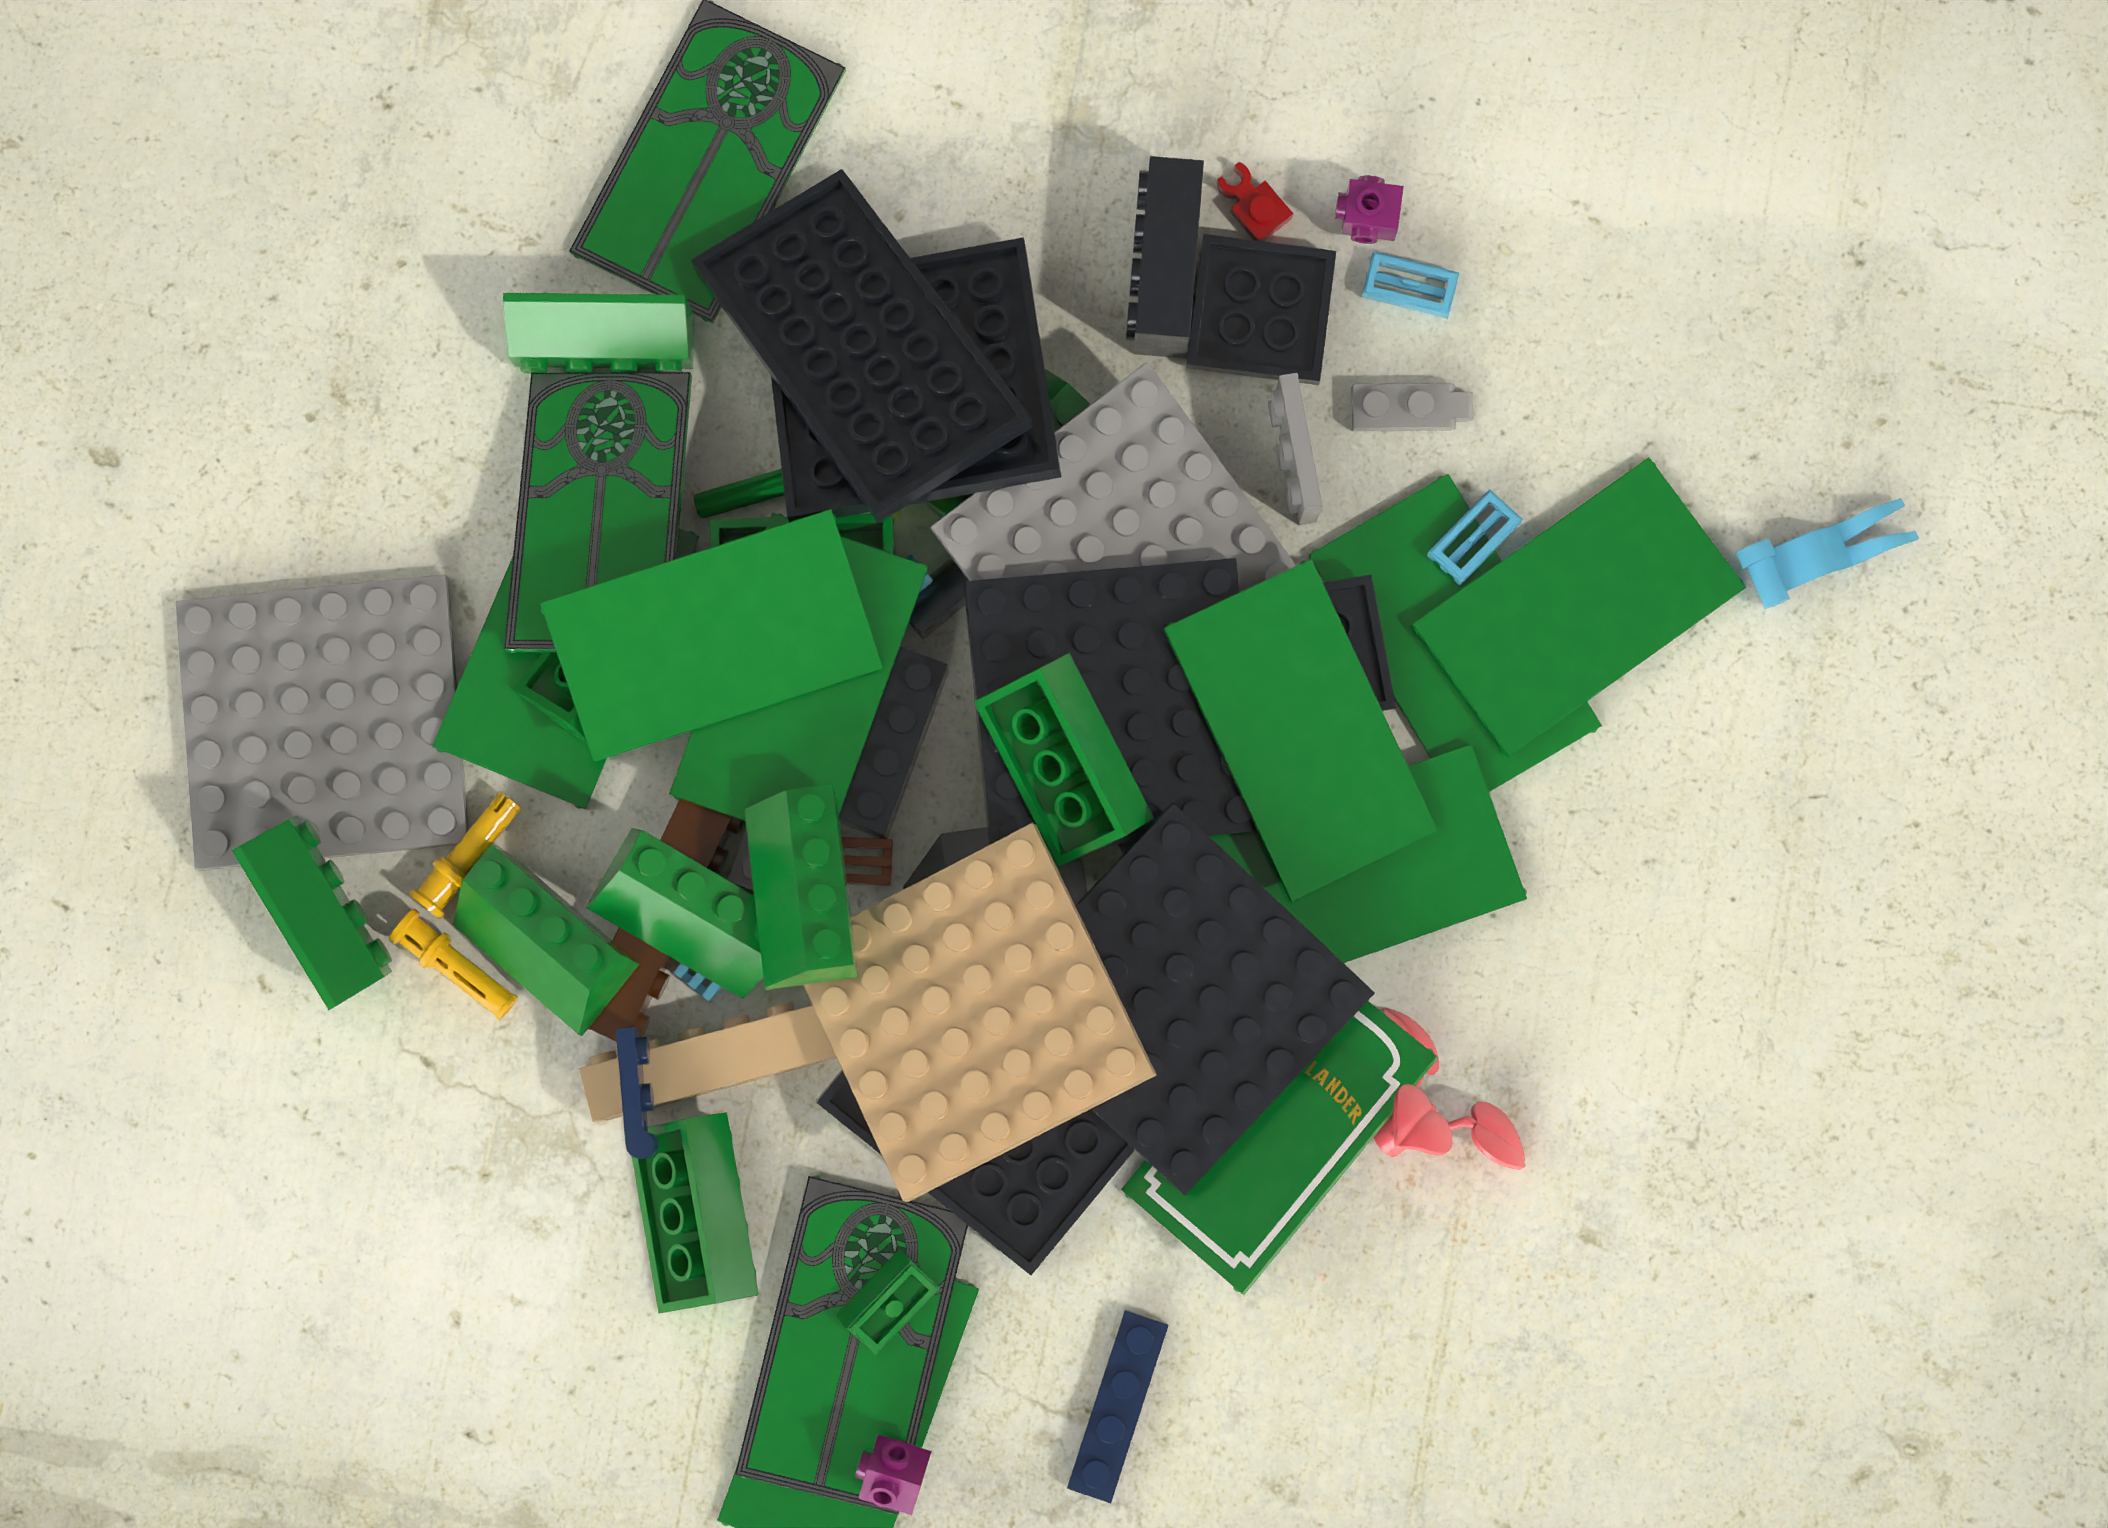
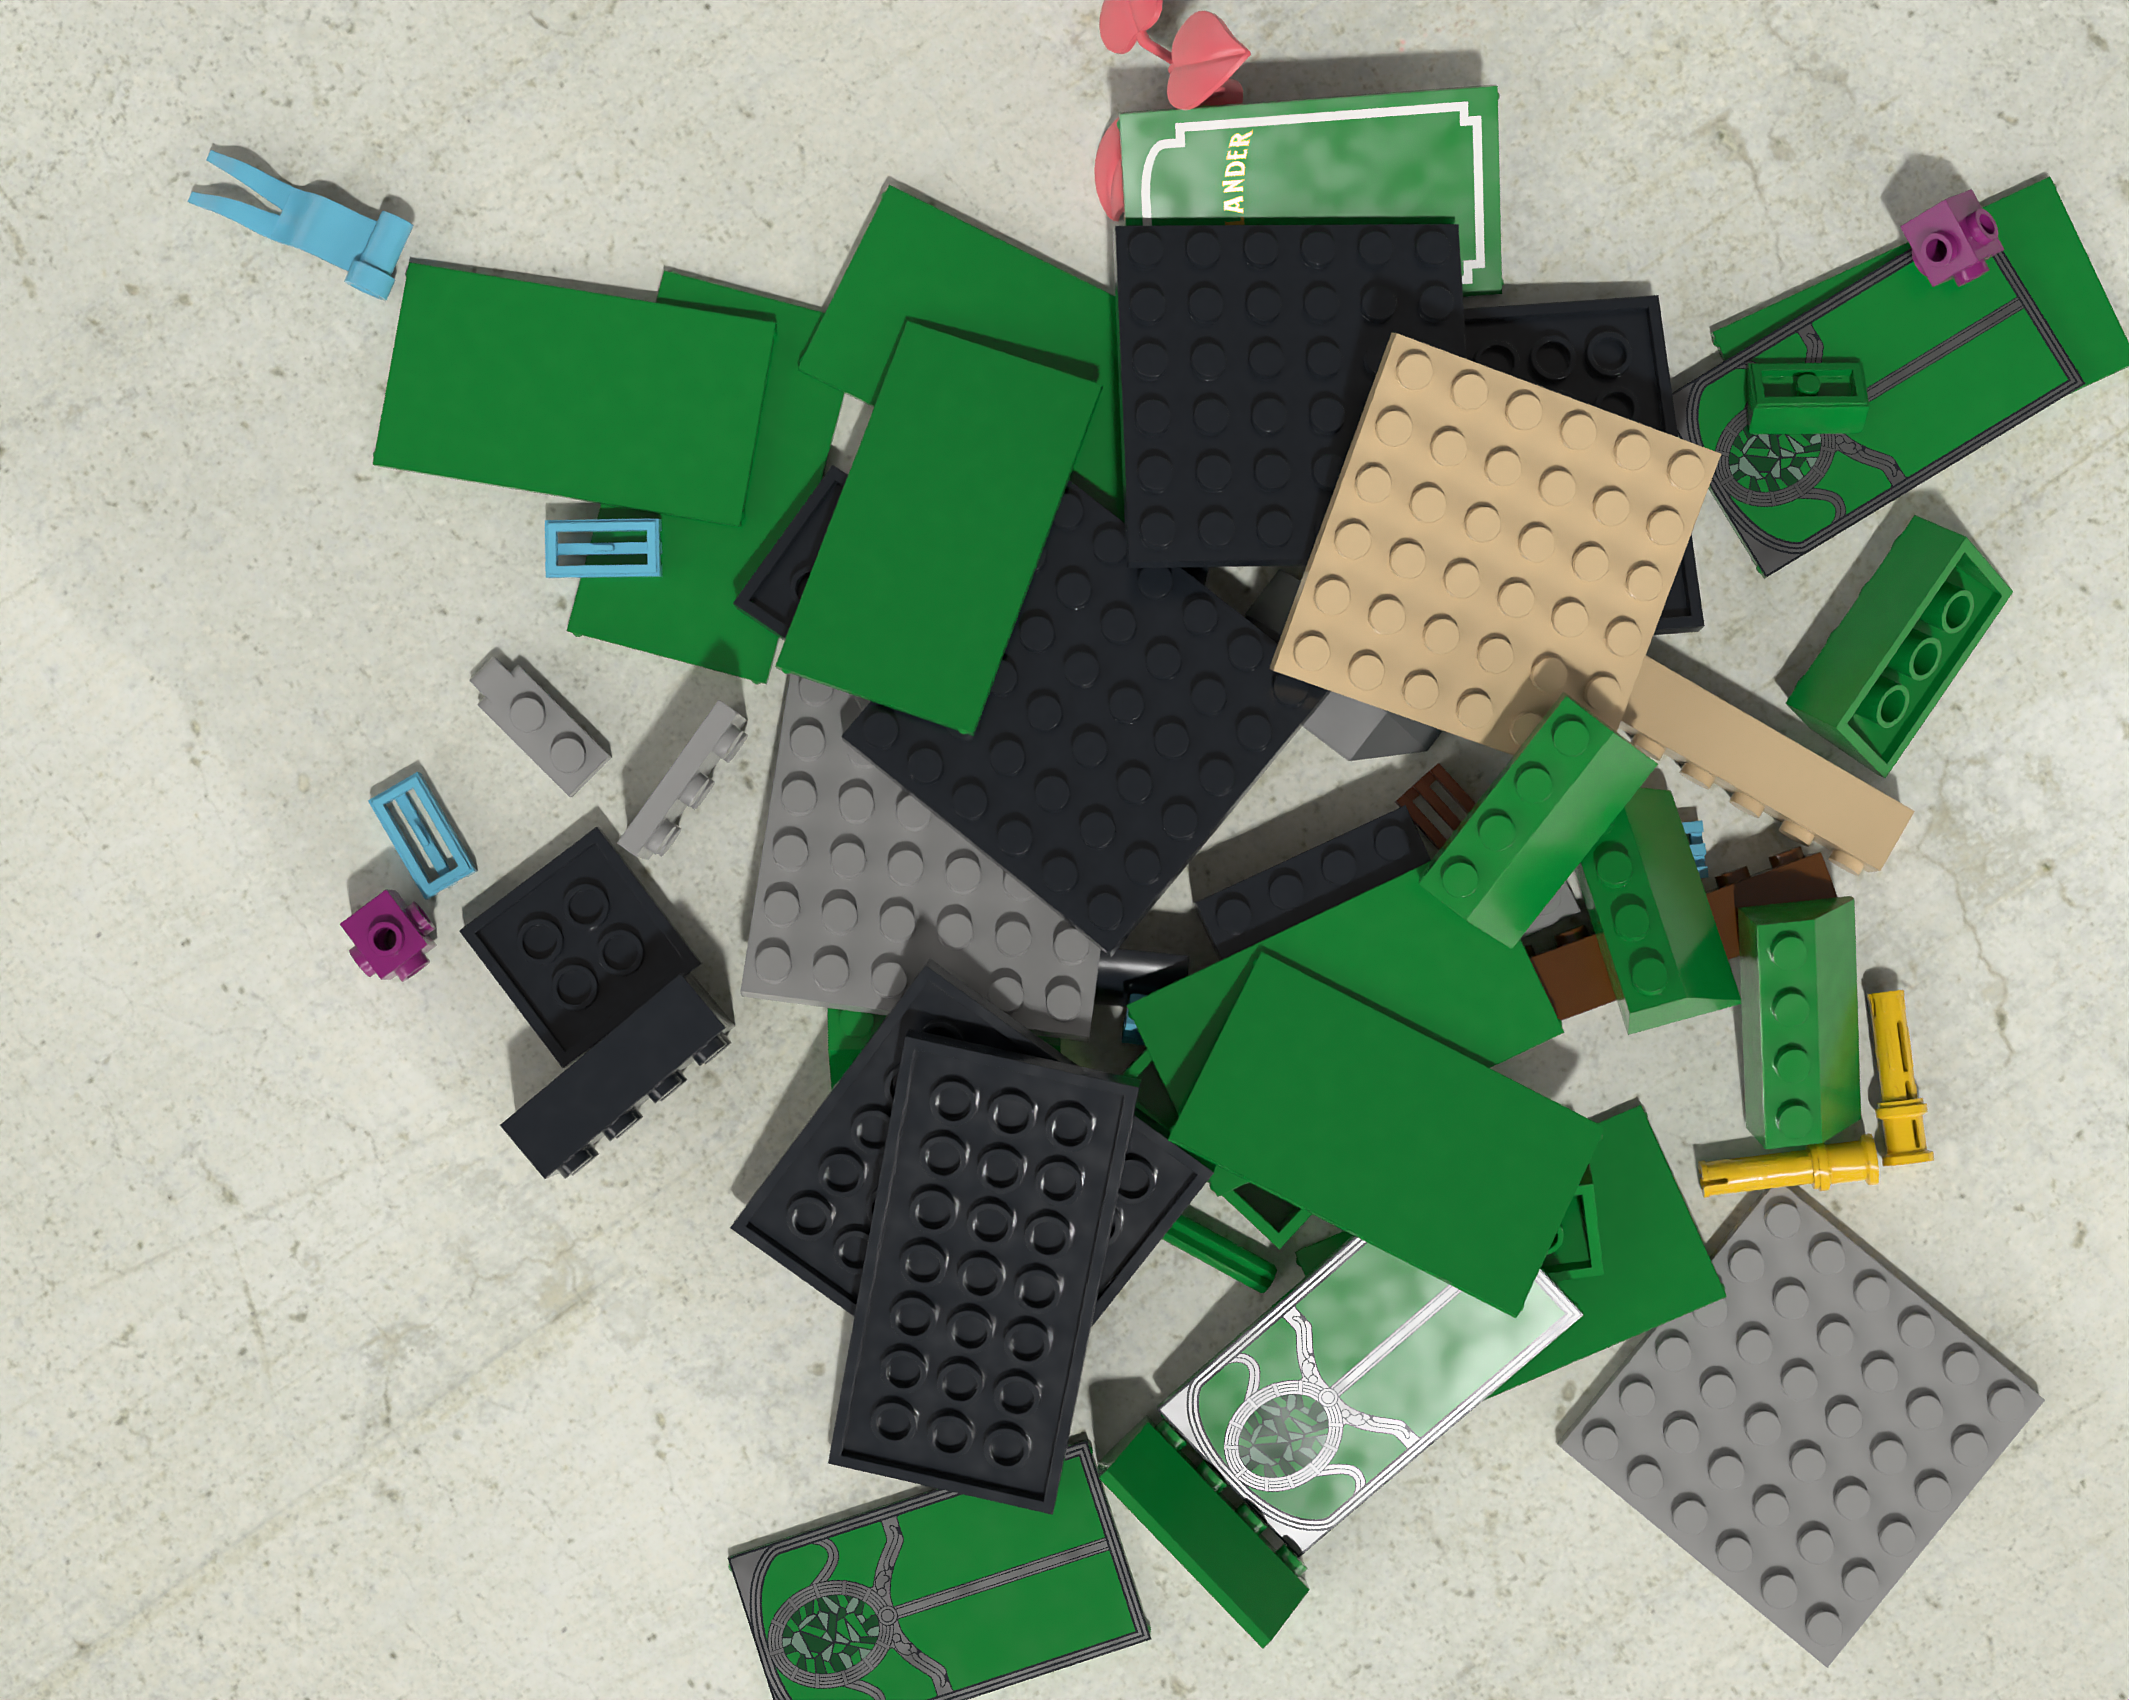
camera: 140 degrees left, 5 degrees up
(314, 910) = (1983, 1248): green slope -> none
(635, 1095) = (1858, 791): dark blue plate -> none
(1064, 760) = (1185, 701): green slope -> none
(1117, 1406) = (1692, 111): dark blue plate -> none
(1258, 208) = (486, 1043): red plate -> none

